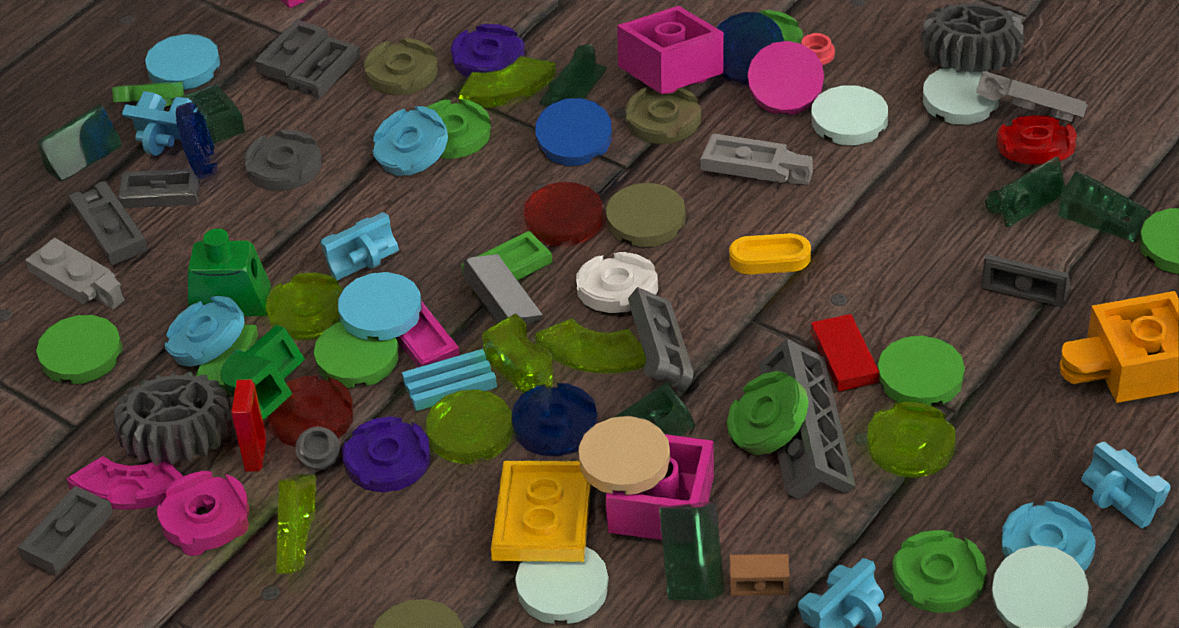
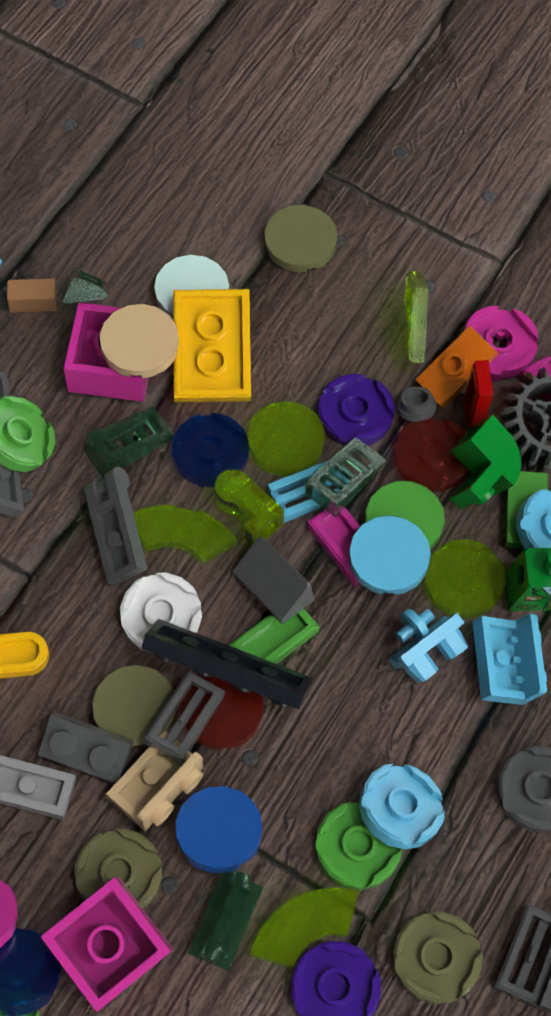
camera: 170 degrees right, 20 degrees up
(257, 474) = (452, 369): none -> orange plate
(284, 234) = (509, 659): none -> medium azure bracket
(425, 346) = (336, 502): none -> clear green slope
(554, 217) = (227, 663): none -> black plate
(604, 189) = (167, 746): none -> dark grey tile
(624, 154) = (154, 784): none -> tan bracket
(704, 183) = (86, 747): none -> dark grey plate

